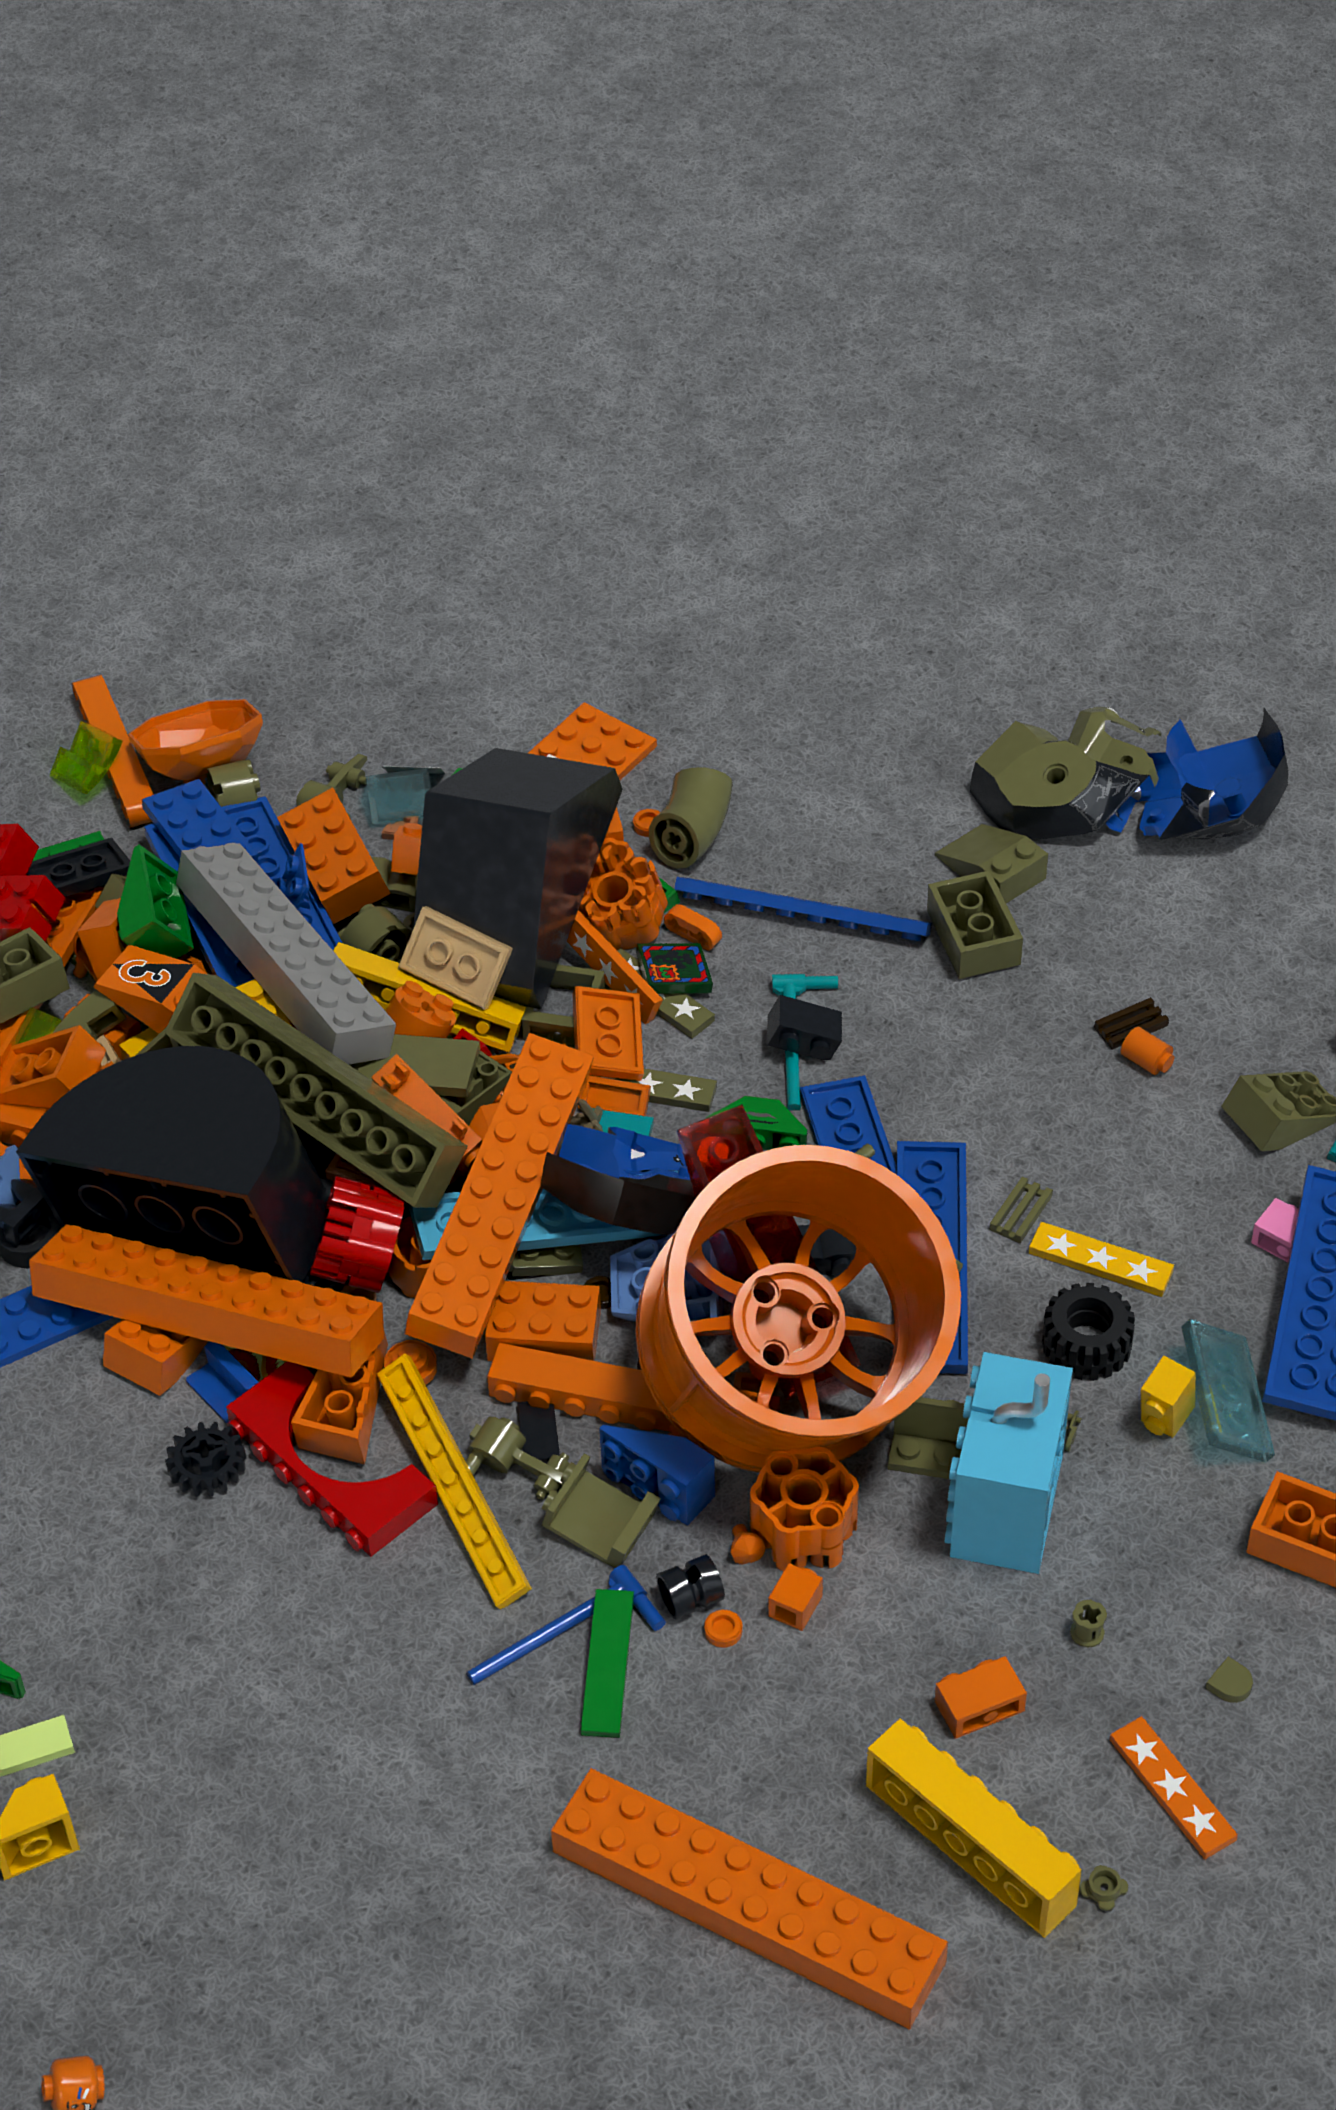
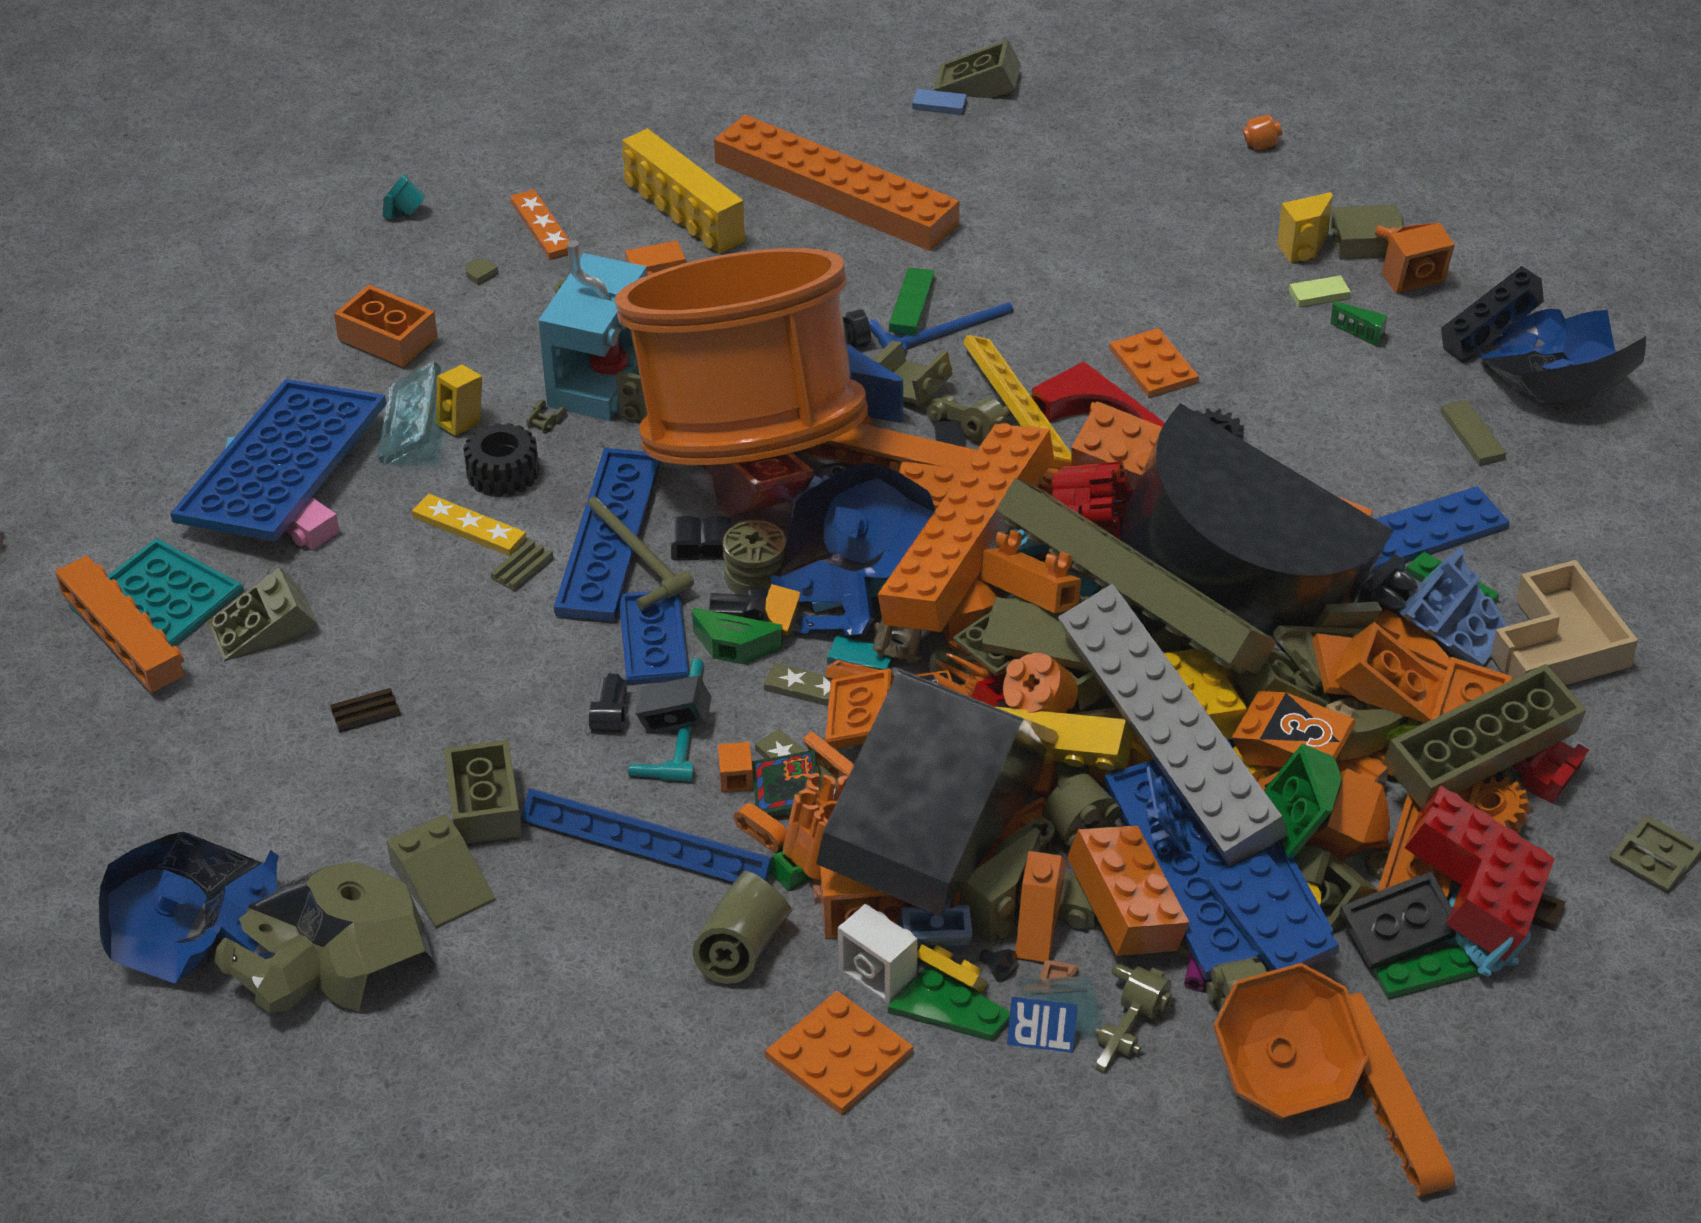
camera: 175 degrees left, 5 degrees down
(87, 759) = (1417, 1064): clear neon green slope -> none
(275, 1589) = (1153, 362): none -> orange plate
(643, 820) = (788, 957): orange tile -> none
(729, 981) = (735, 767): none -> orange brick
(875, 1039) = (609, 705): none -> black piece
(1105, 1876) = (604, 181): olive plate -> none
(1147, 1051) = (362, 673): orange brick -> none

